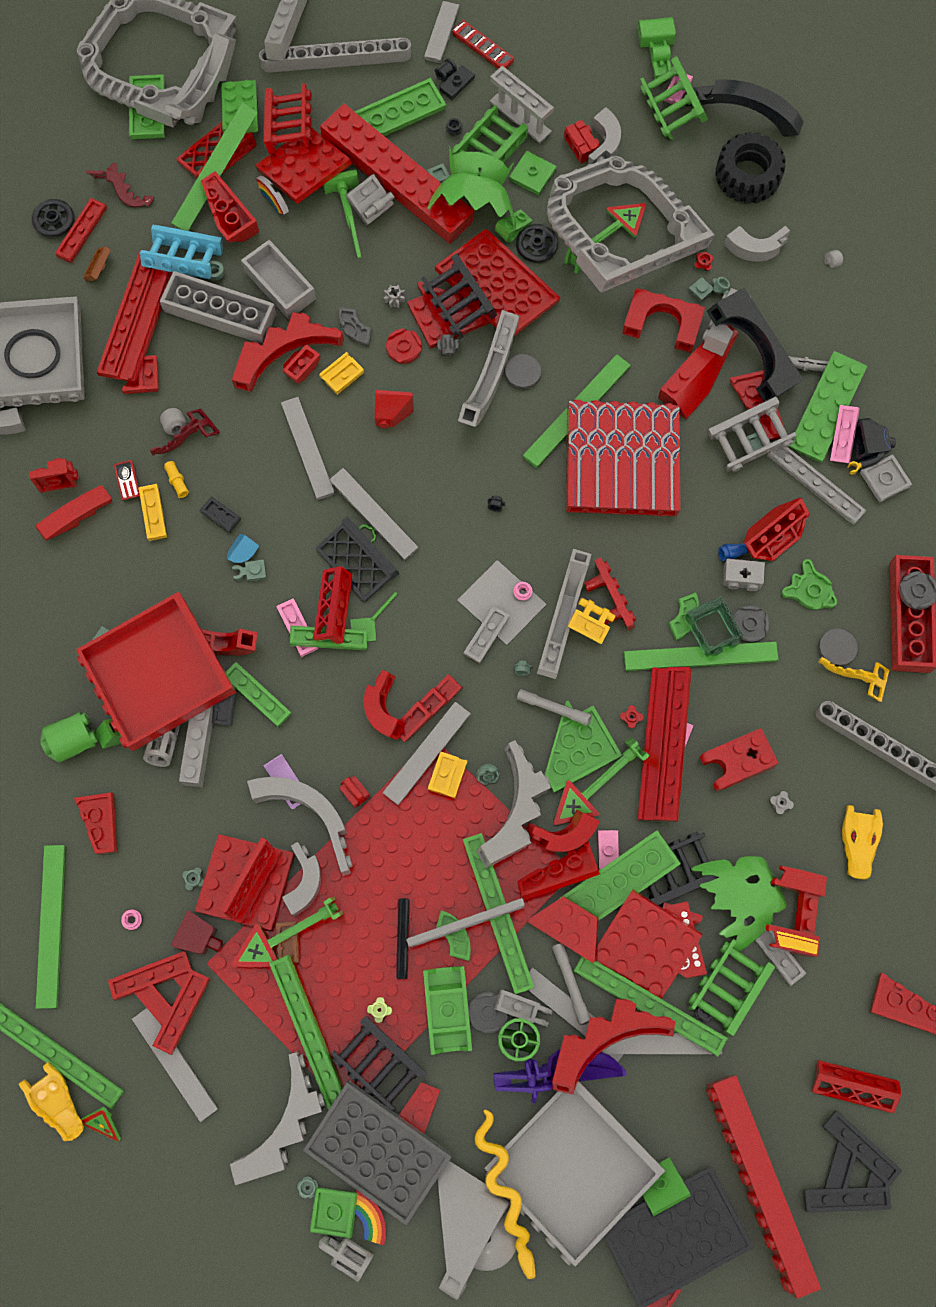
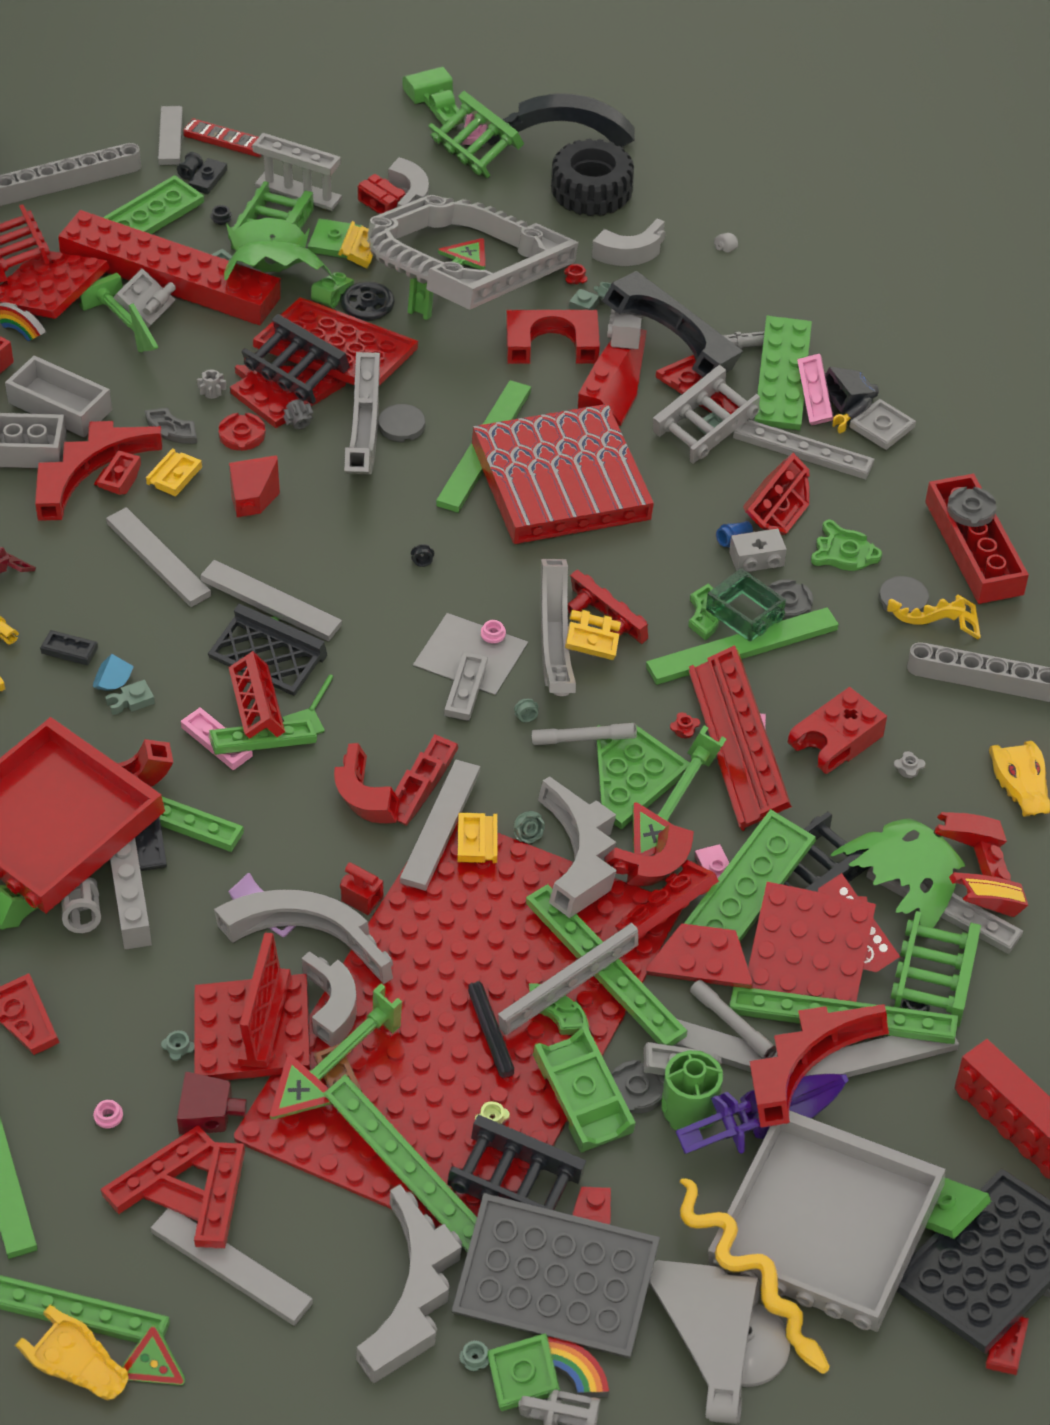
camera: 20 degrees left, 25 degrees down
(543, 186) = (356, 245): none -> yellow plate

